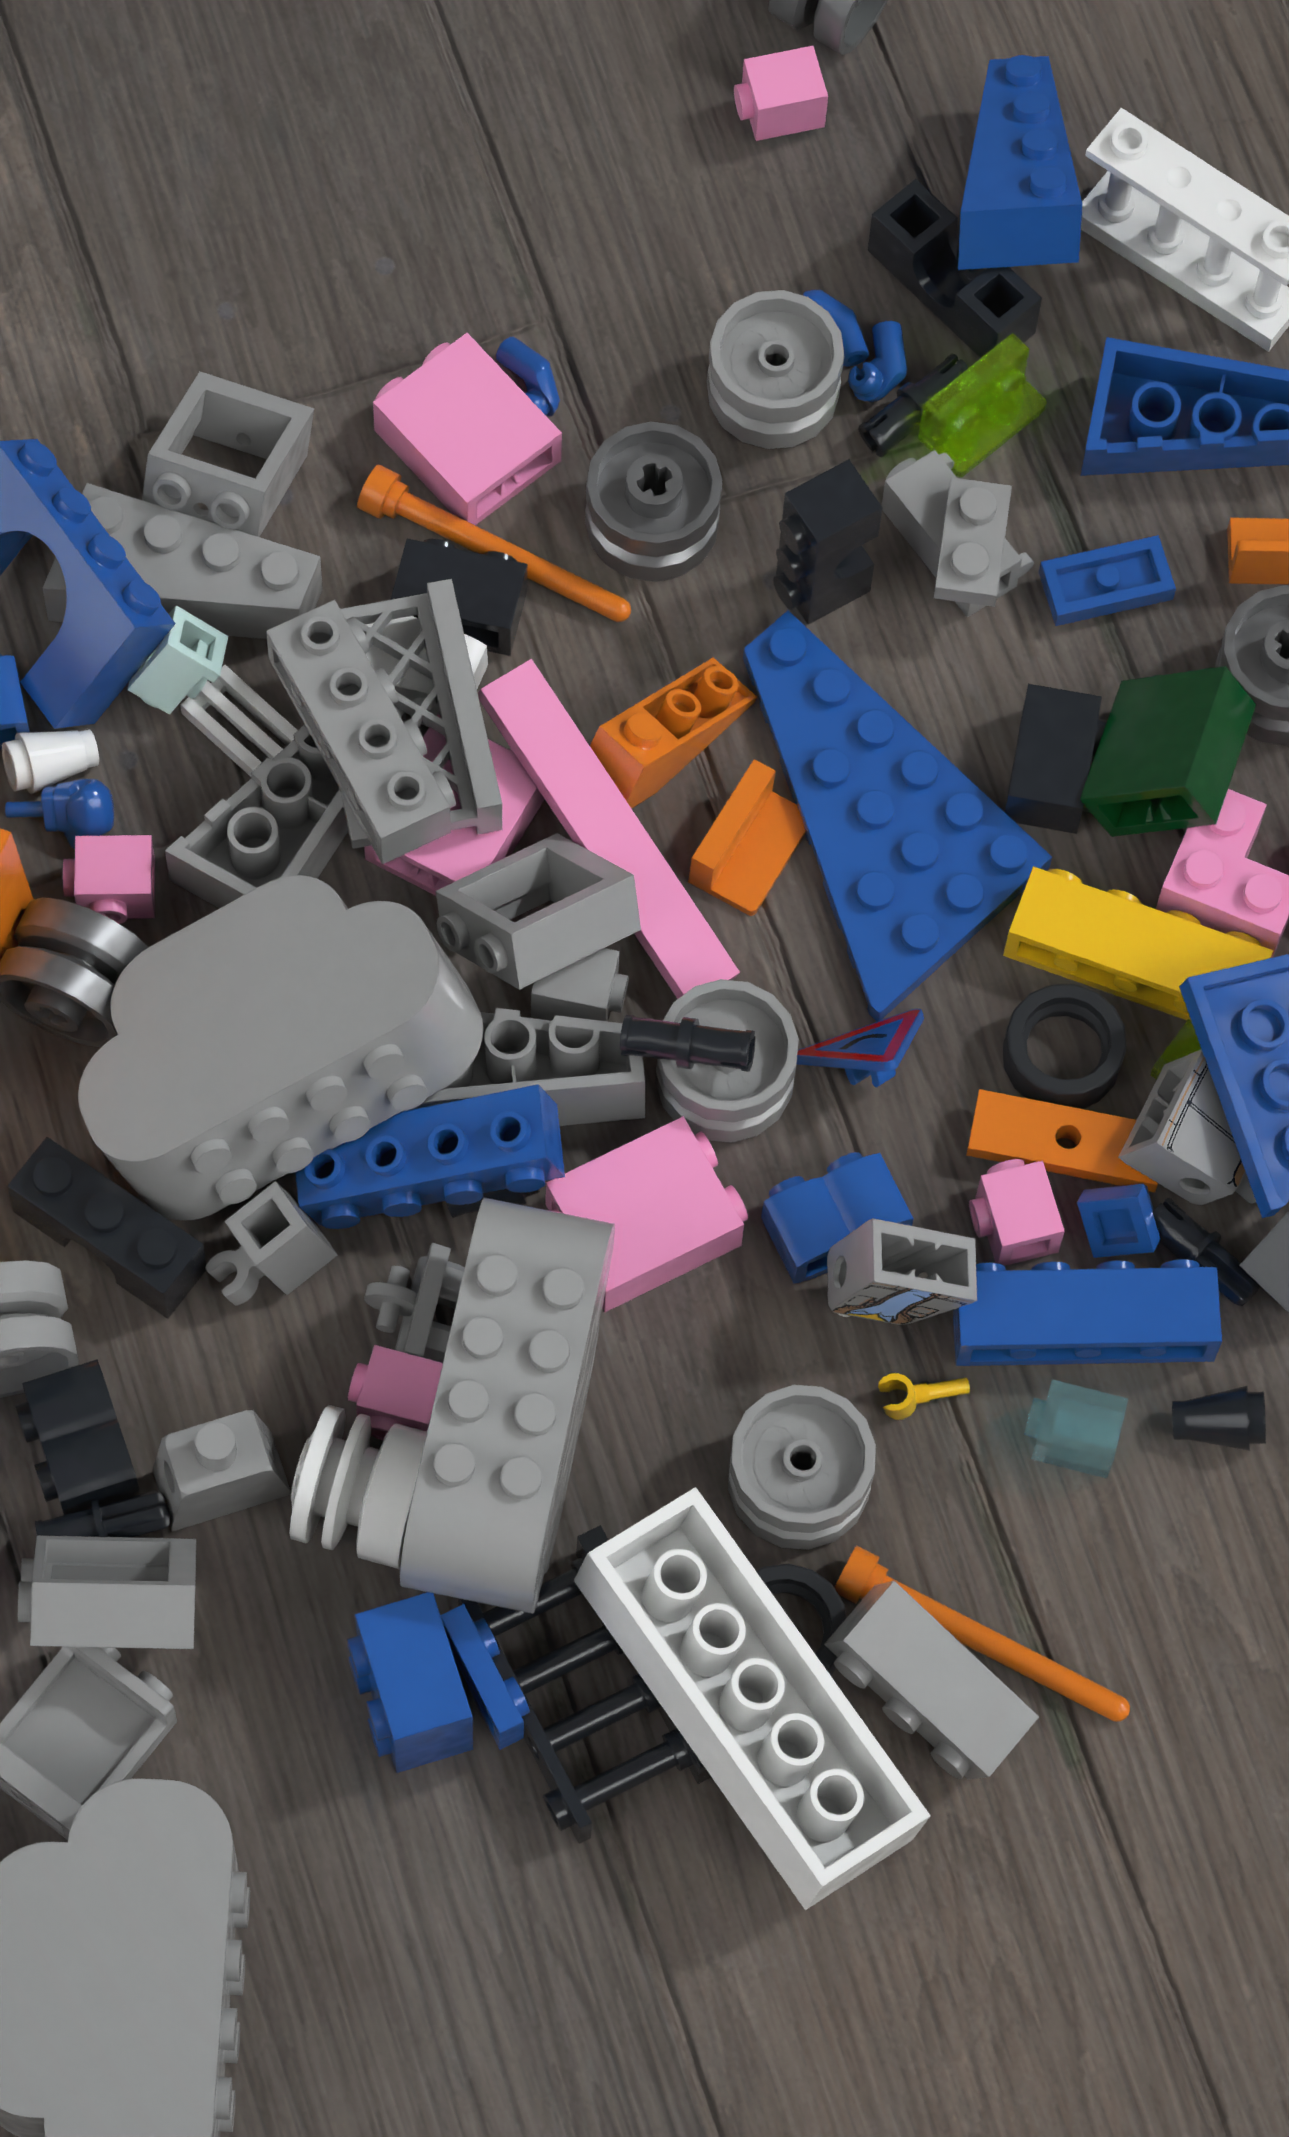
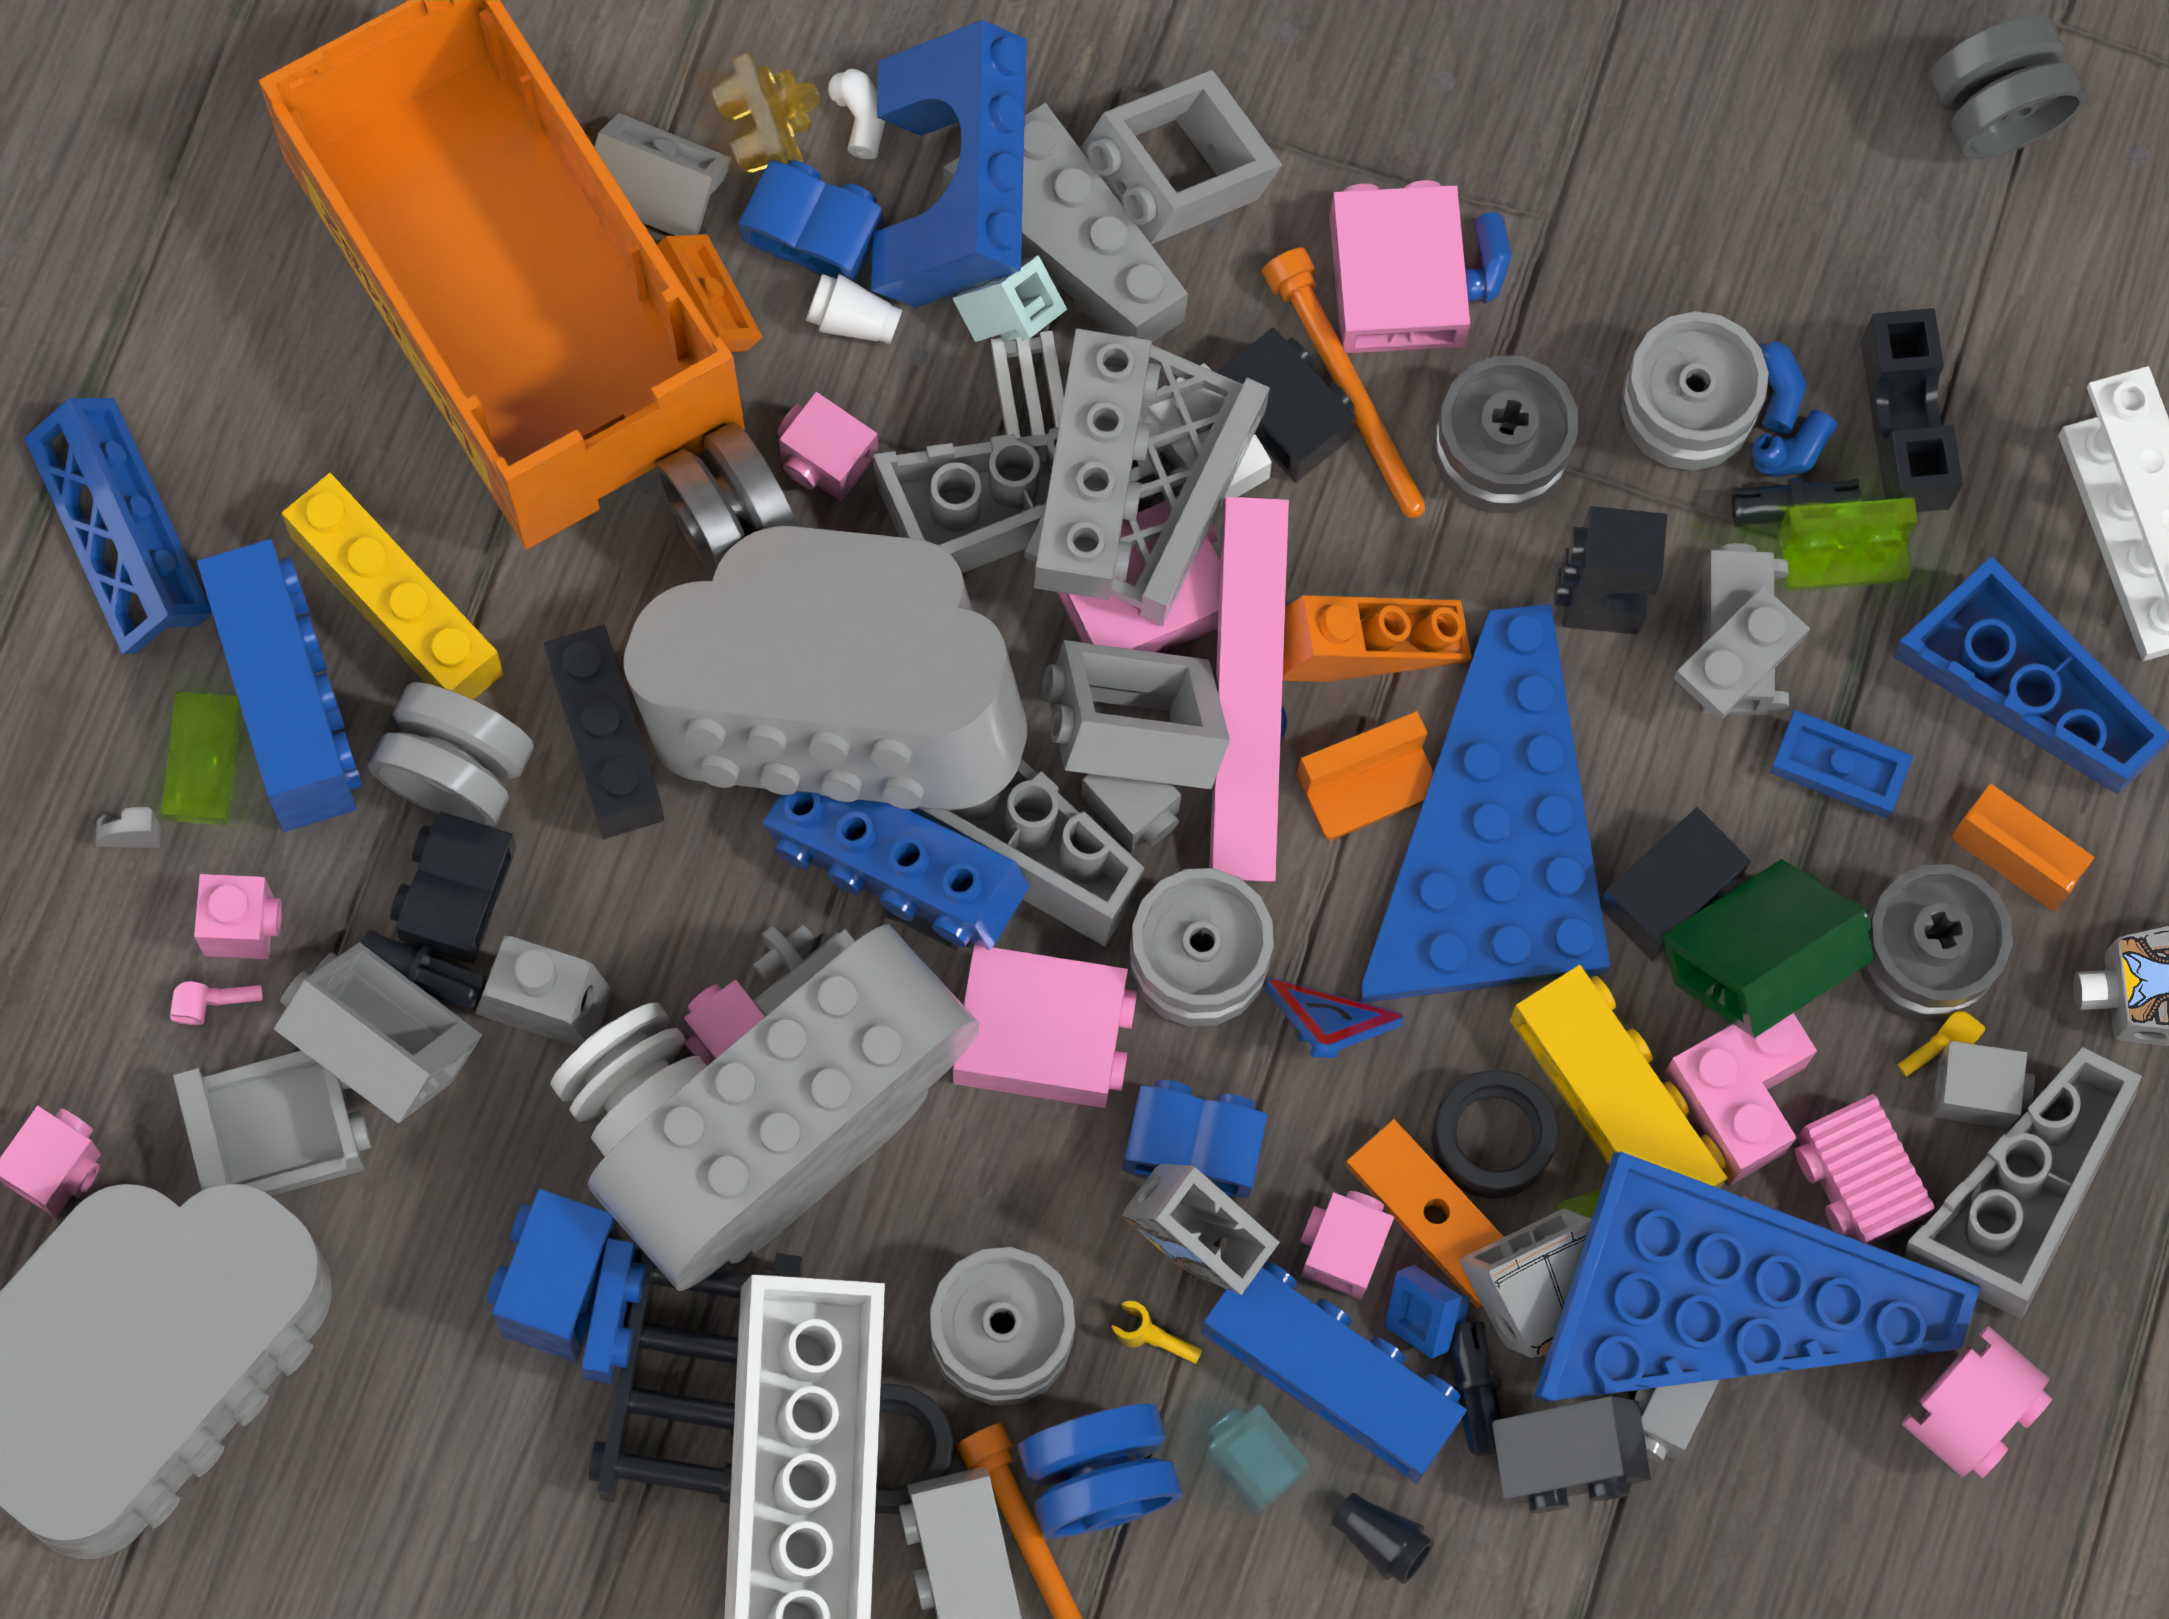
camera: 35 degrees right, 5 degrees up
(71, 807) = (841, 366): blue piece -> none
(274, 1242) = (721, 839): light grey brick -> none
(687, 1043) = (1165, 912): black pin -> none
(782, 93) = (1885, 156): bright pink brick -> none
(977, 1526) = (1099, 1471): none -> blue wheel
(1021, 176) = (2019, 366): blue wedge -> none

